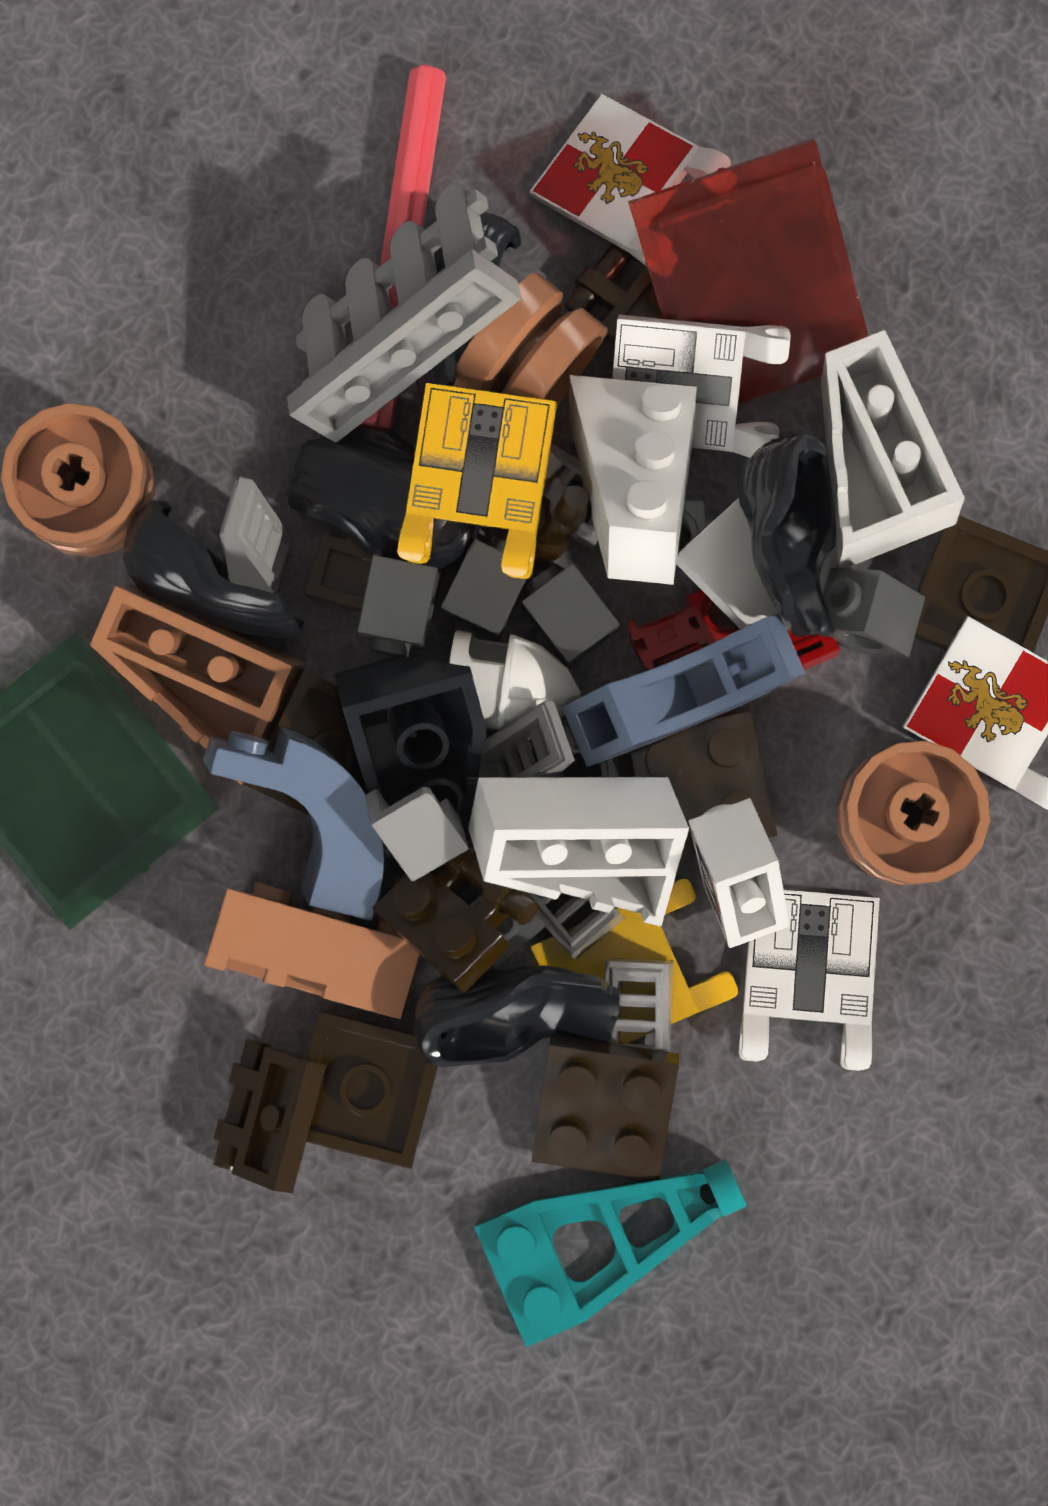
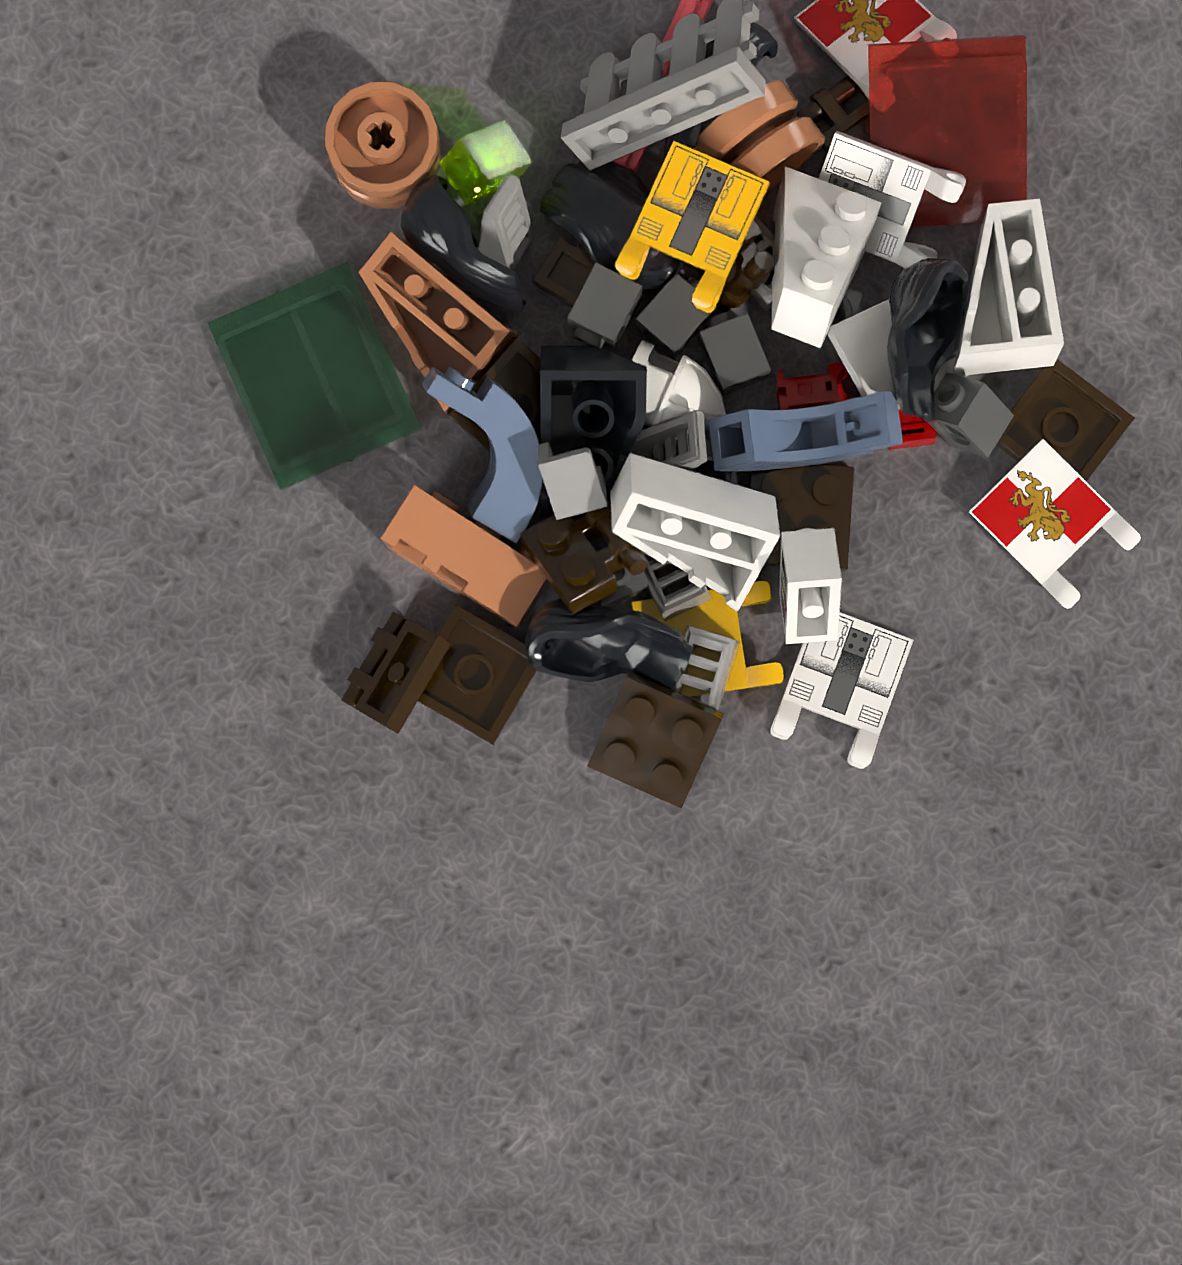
camera: 15 degrees right, 0 degrees up
(204, 465) = (483, 160): none -> clear neon green brick
(530, 1269) = (563, 853): teal plate -> none
(949, 805) = (986, 573): nougat wheel -> none

